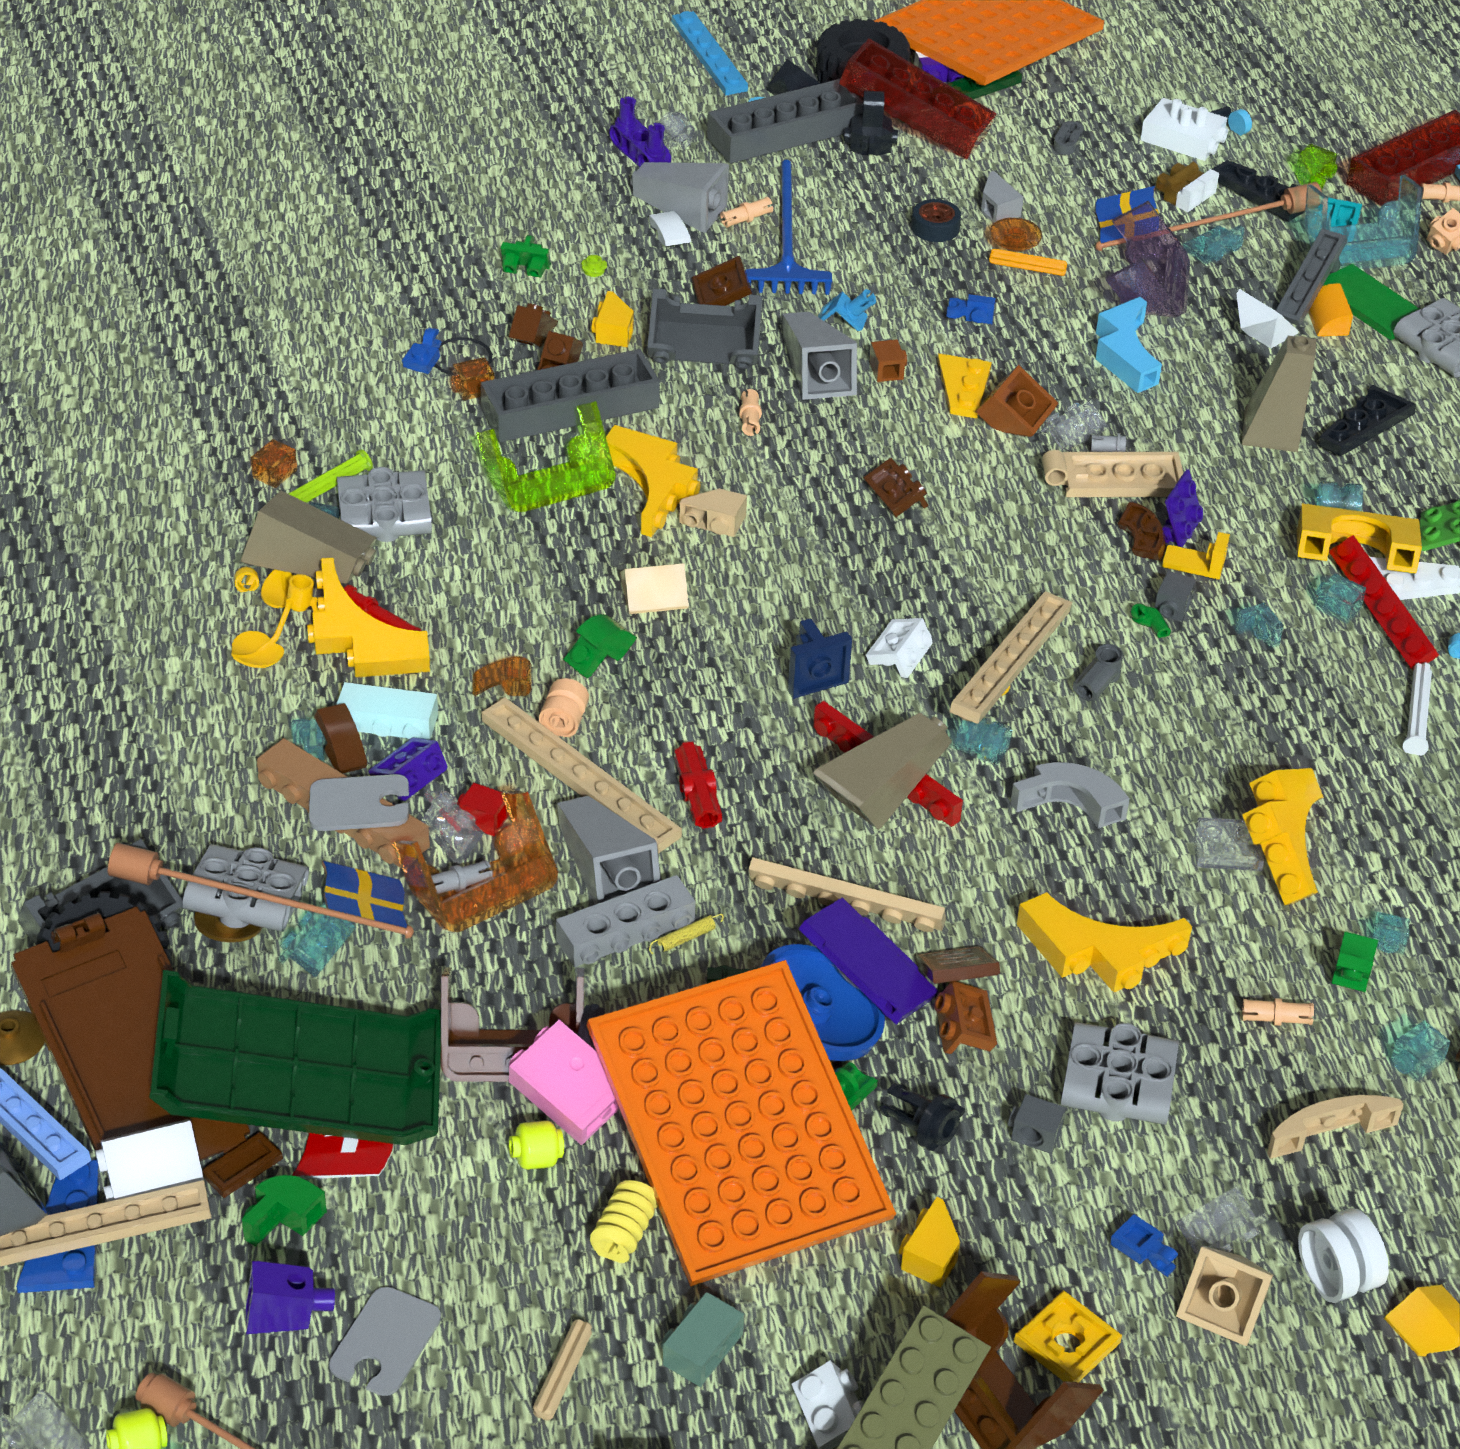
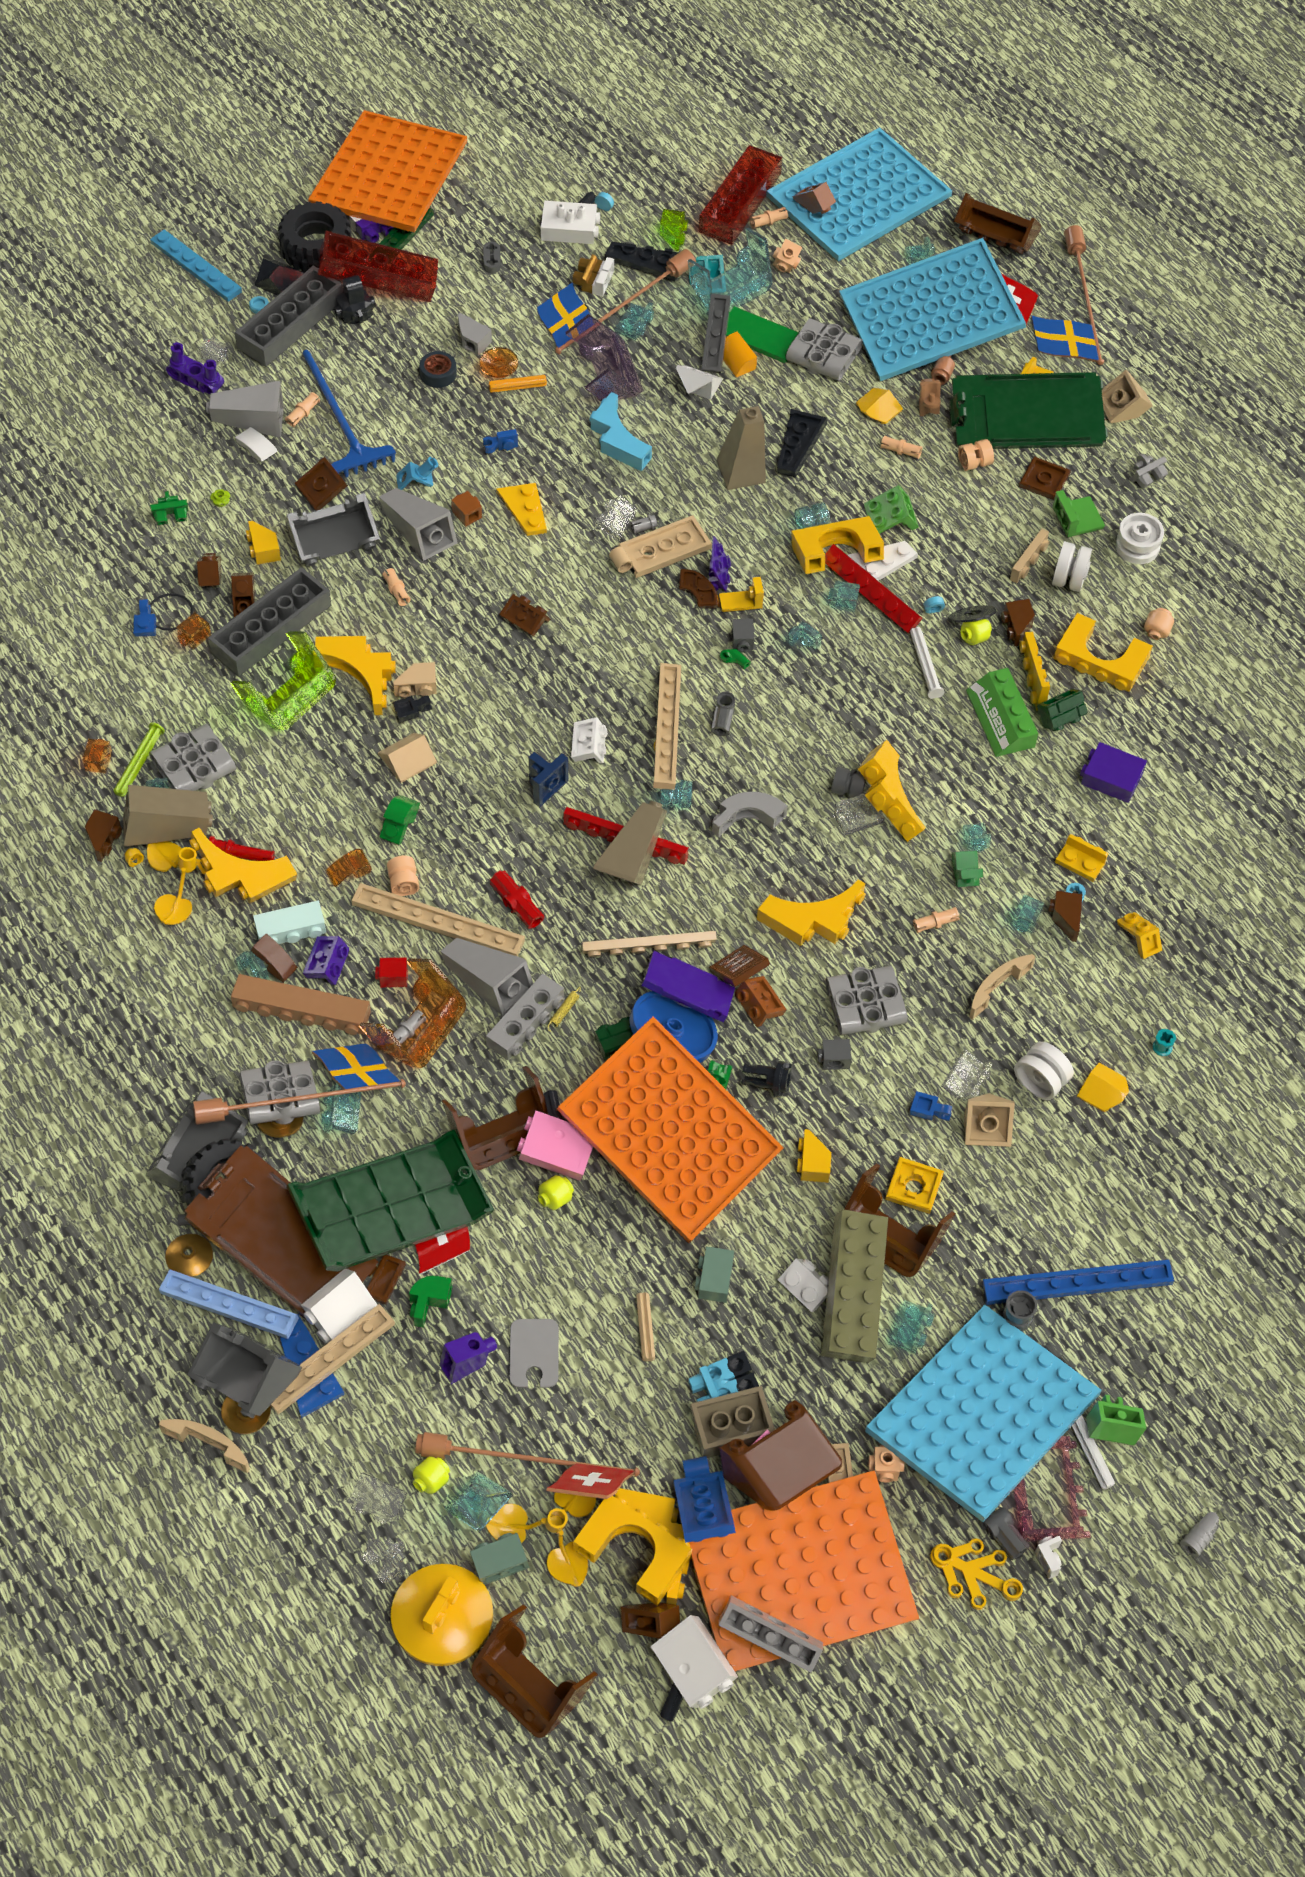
camera: 25 degrees left, 15 degrees up
(223, 540) = (101, 832): none -> reddish brown slope
(356, 802) = (311, 1003): light grey piece -> none
(451, 826) = (381, 994): clear bracket -> none
(624, 1220) = (632, 1220): light yellow piece -> none
(687, 537) = (409, 708): none -> black plate
(1017, 404) = (571, 515): dark orange slope -> none
(1228, 800) = (848, 782): none -> dark grey wheel

